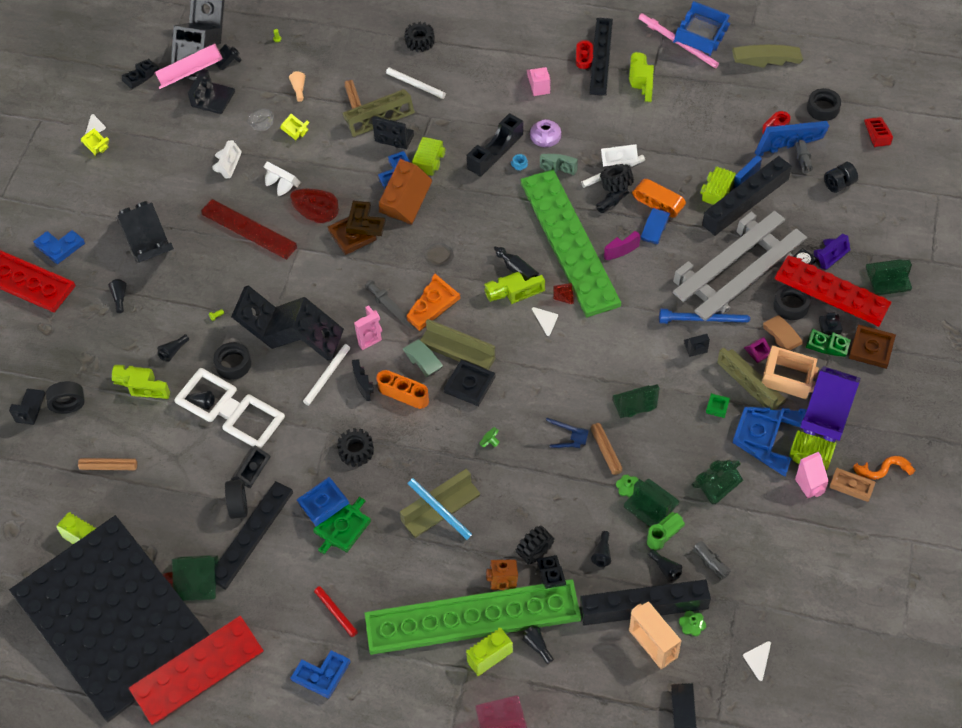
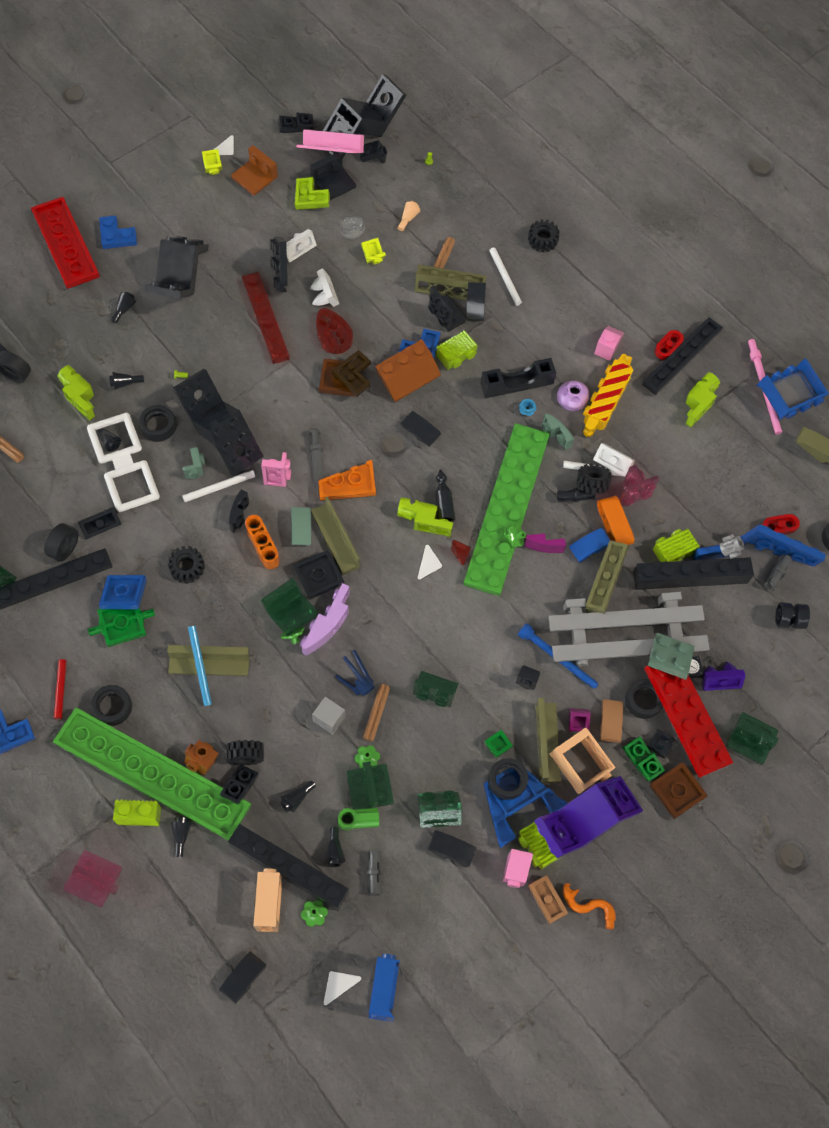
camera: 30 degrees right, 10 degrees up
(141, 126) = (257, 172): none -> dark orange bracket
(203, 121) = (309, 198): none -> lime plate
(228, 177) = (279, 263): none -> black plate
(295, 368) = (195, 470): none -> sand green bracket
(388, 576) = (101, 694): none -> black tyre
(412, 111) = (476, 301): none -> black slope
(454, 227) = (420, 428): none -> black slope
(470, 421) = (288, 607): none -> clear green bracket
(509, 410) = (326, 626): none -> lavender slope
(573, 116) = (608, 396): none -> yellow hinge
(574, 474) = (328, 715): none -> light grey piece
(596, 254) = (516, 536): none -> bright green plant
(653, 160) = (636, 486): none -> clear pink bracket
(690, 236) = (606, 577): none -> olive fence
(749, 433) = (512, 763): none -> black tyre
(749, 500) = (452, 848): none -> black slope
(760, 155) = (732, 546): none -> light grey gear
(786, 256) = (671, 656): none -> sand green plate
(800, 626) = (384, 988): none -> blue window

